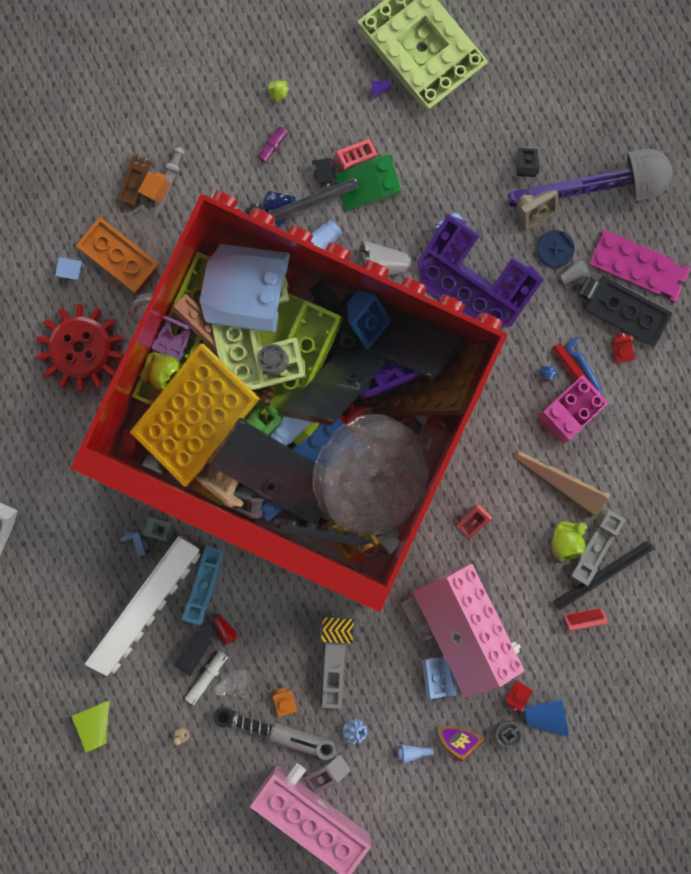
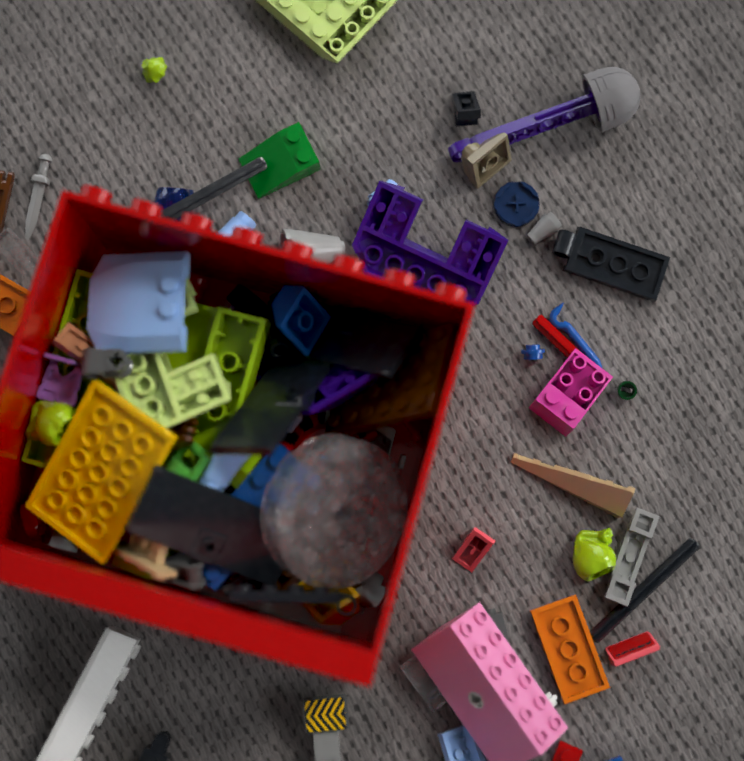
camera: 10 degrees left, 5 degrees down
(141, 545) = (62, 645): medium blue bracket -> none
(152, 526) = (74, 624): sand green brick -> none
(154, 186) = (21, 204): orange brick -> none
(203, 585) = (149, 685): dark azure slope -> none
(207, 332) = (102, 362): none -> dark grey piece
(225, 631) = (185, 738): red cone -> none
(272, 144) = (157, 134): magenta pin -> none
(273, 359) = (187, 384): dark grey wheel -> none
(325, 172) = (225, 155): black brick -> none
(343, 166) = (240, 132): coral slope -> none
(380, 88) = (275, 48): dark purple slope -> none
(536, 611) = (569, 649): none -> orange plate
(617, 419) = (624, 394): none -> dark green hinge
(622, 348) = (617, 309): red bracket -> none
(639, 265) = (619, 208): dark pink hinge -> none

